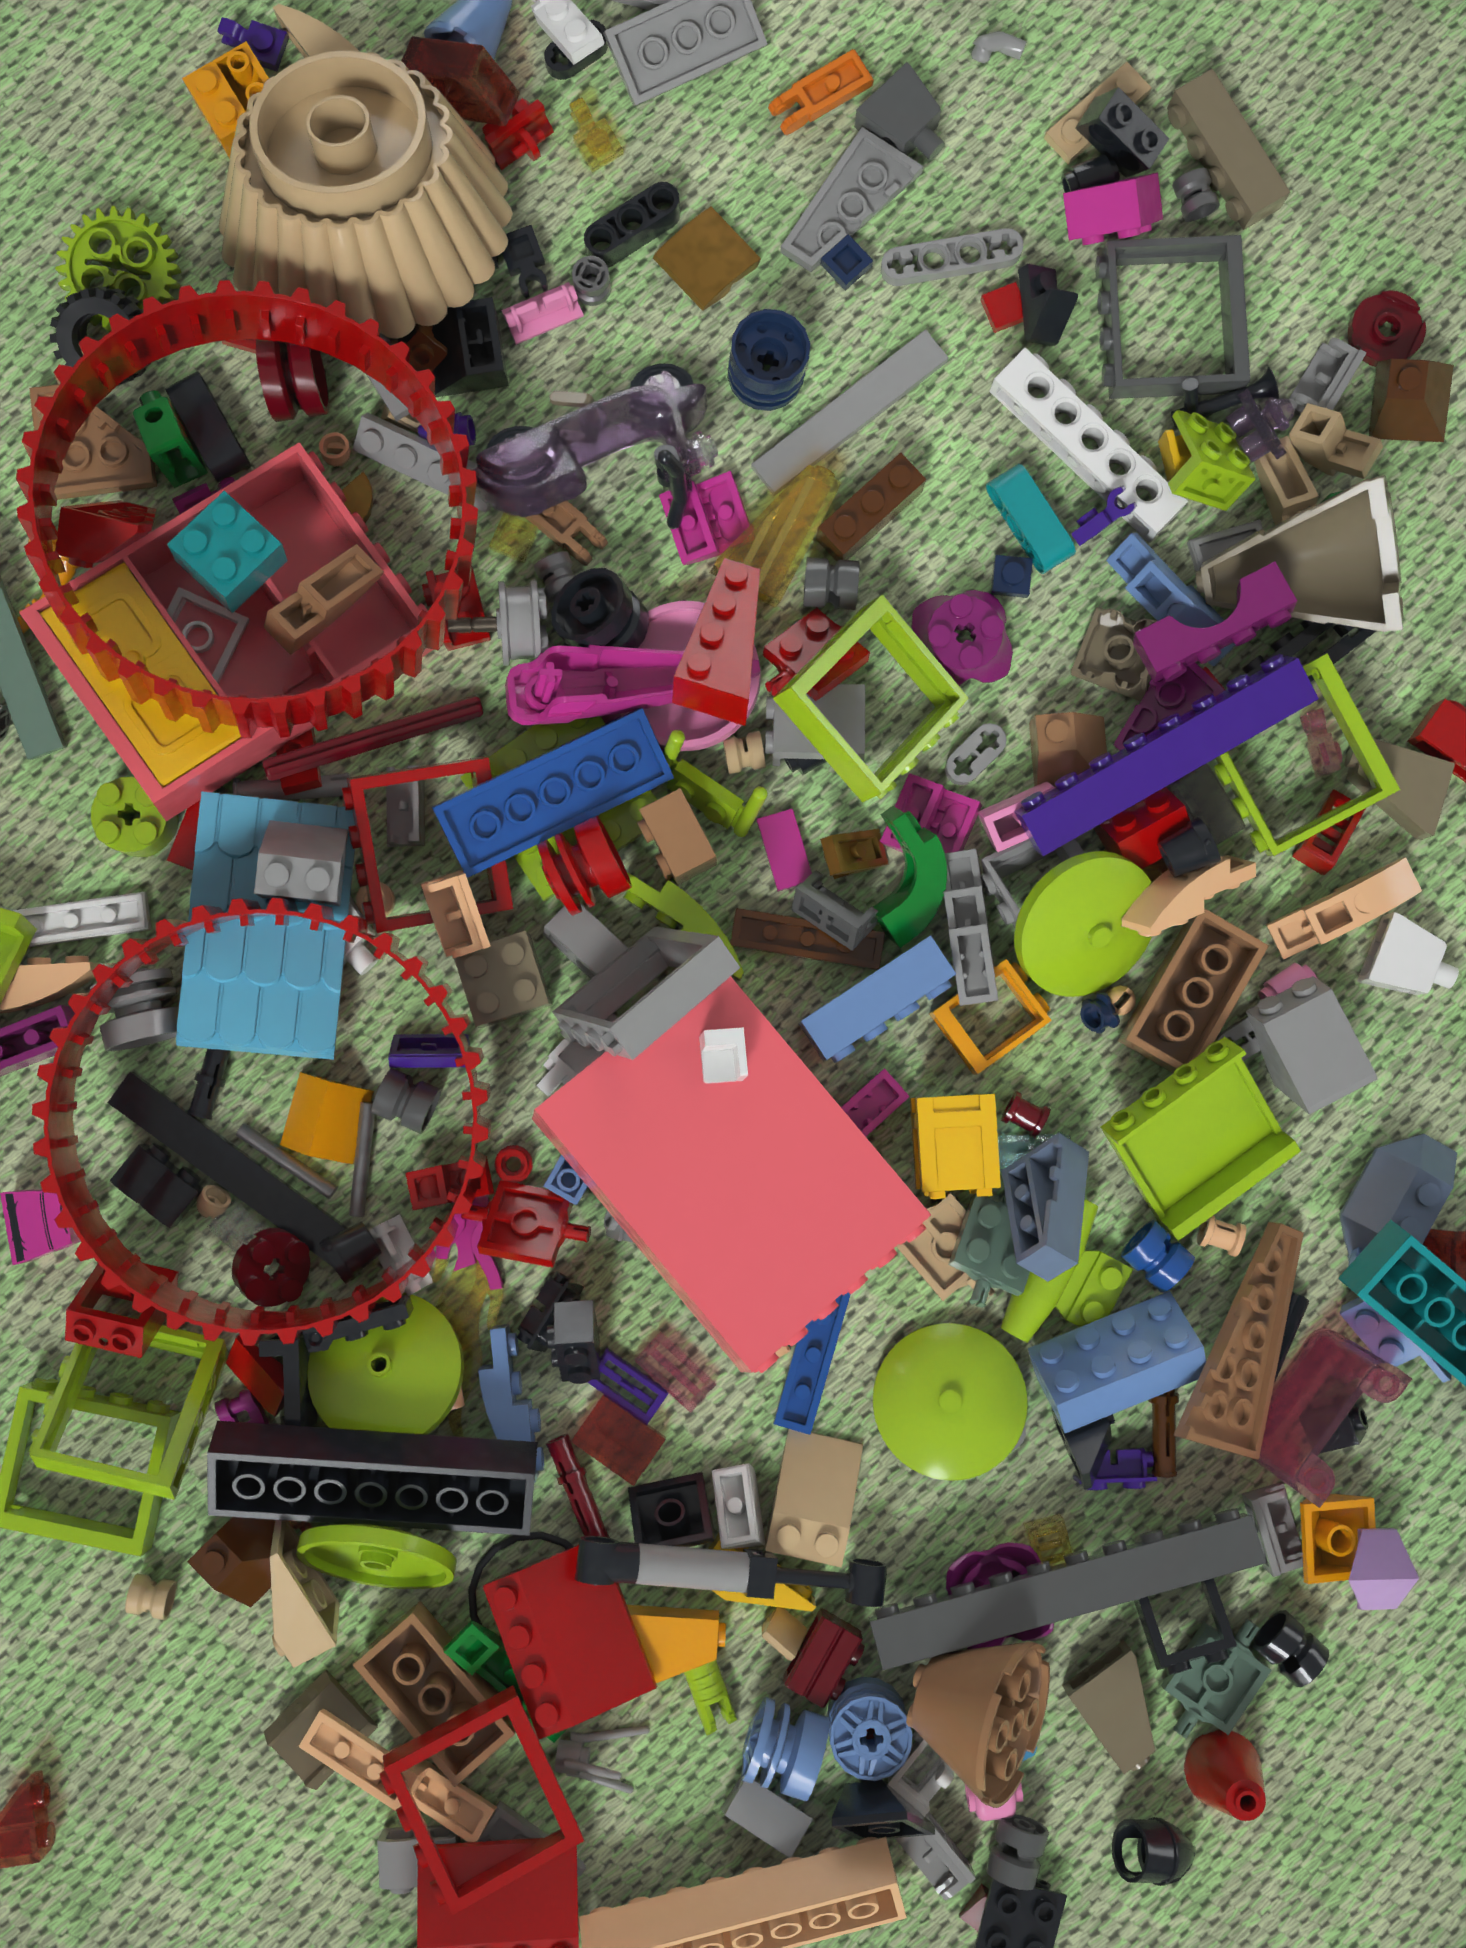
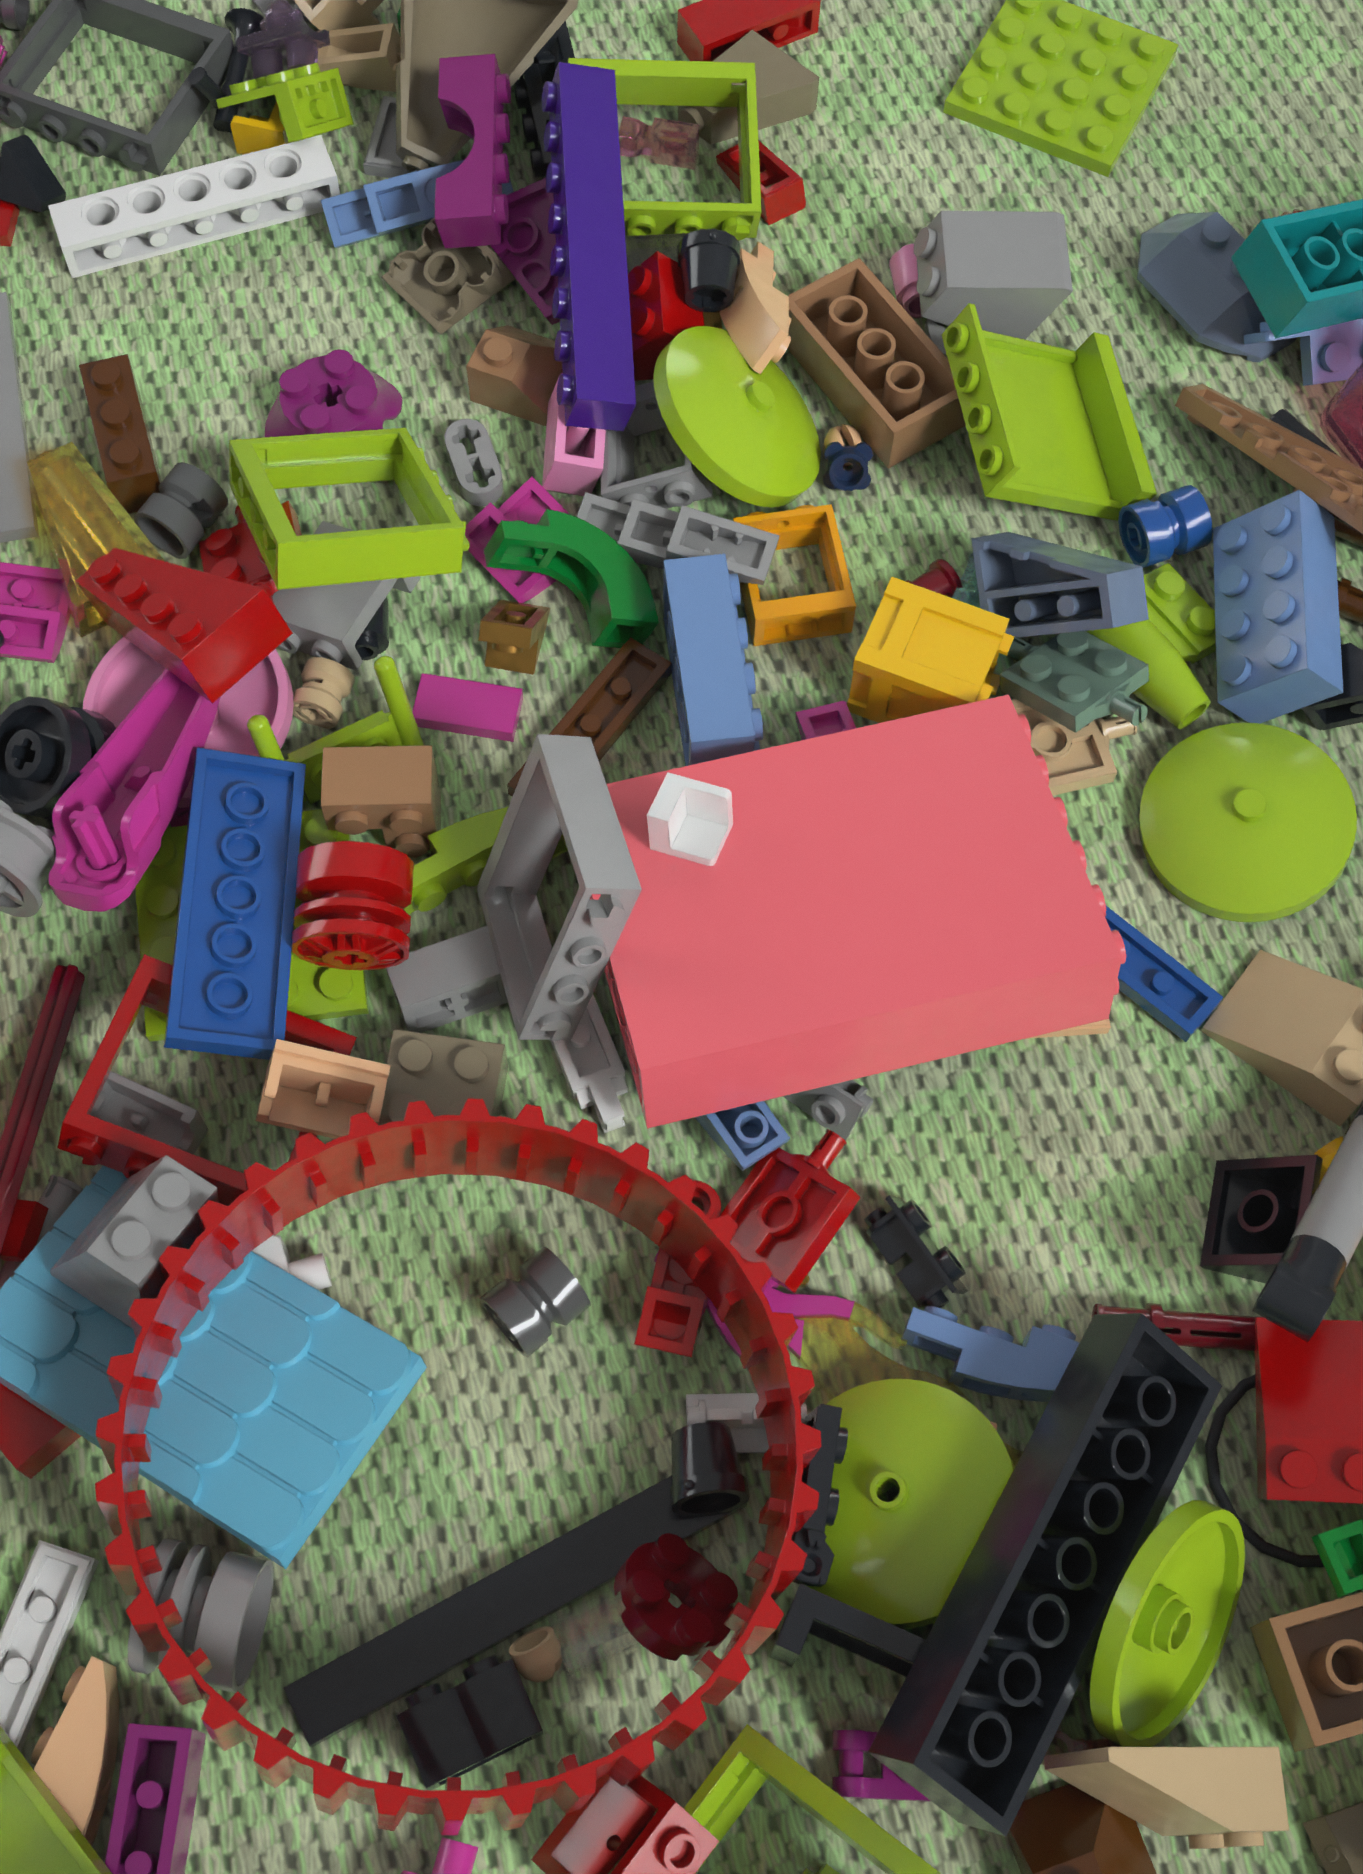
camera: 65 degrees left, 20 degrees down
(209, 1083) = (359, 1573): black pin -> none
(259, 1374) = (822, 1698): red slope -> none
(286, 1161) = (531, 1520): flat silver bar -> none
(324, 1118) = (498, 1433): light orange slope -> none
(362, 1160) = (584, 1407): flat silver bar -> none
(424, 1051) = (483, 1242): tile -> none
(575, 1341) = (974, 1216): black brick -> none
(618, 1439) = (1129, 1241): clear red plate -> none
(638, 1375) = (1021, 1225): dark purple tile -> none
(699, 1394) = (1109, 1114): clear pink tile -> none
(738, 1507) = (1284, 1123): white slope -> none
(832, 913) = (575, 677): dark grey hinge -> none
(1011, 576) = (292, 341): dark blue plate -> none
(1030, 518) = (240, 291): teal beam -> none
(1095, 522) = (285, 230): dark purple plate -> none
(1222, 1235) = (1174, 453): light nougat bush -> none
(1344, 908) = (854, 190): light nougat slope -> none
(1406, 958) = (937, 163): white torso -> none

